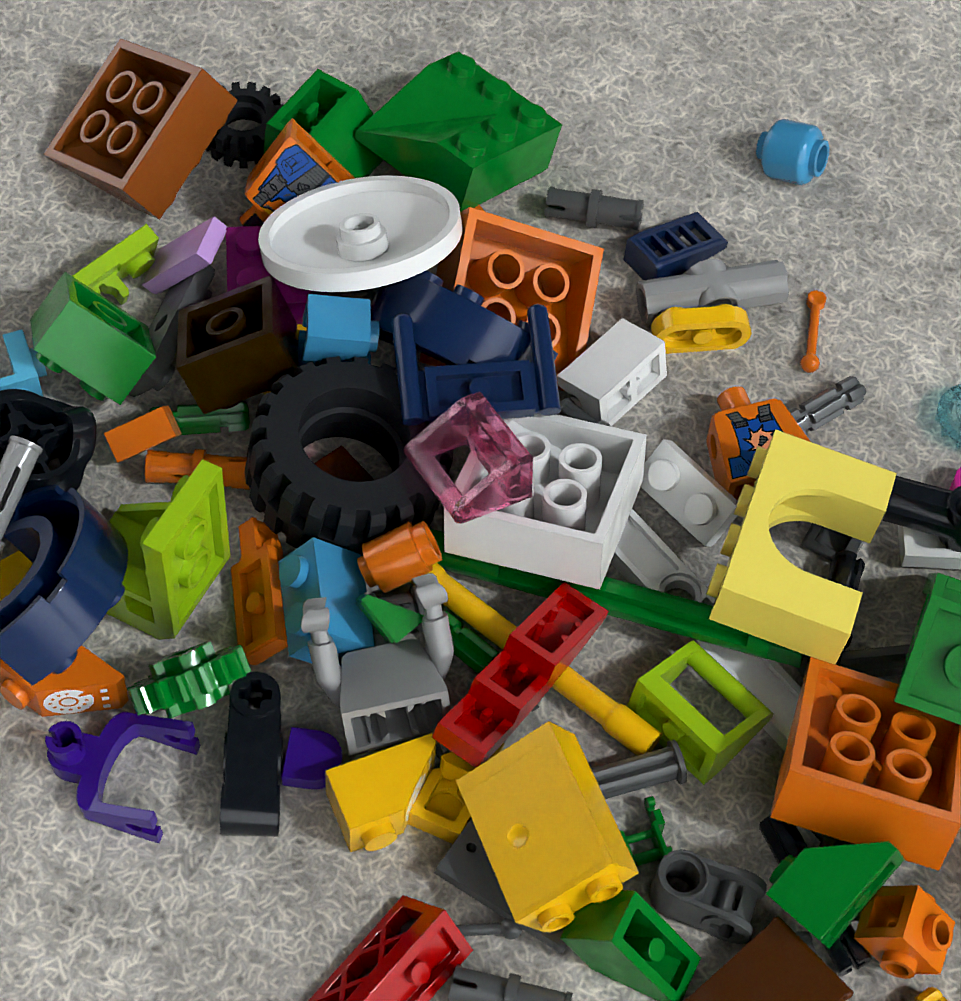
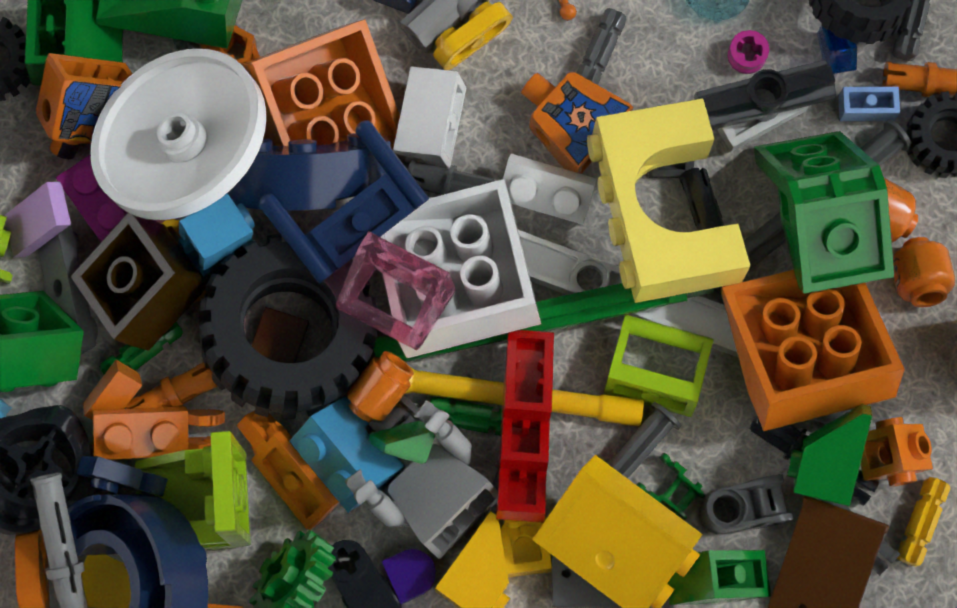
camera: 30 degrees left, 20 degrees up
(90, 481) = (110, 475): none -> dark blue plate
(135, 471) = (149, 431): none -> orange hinge

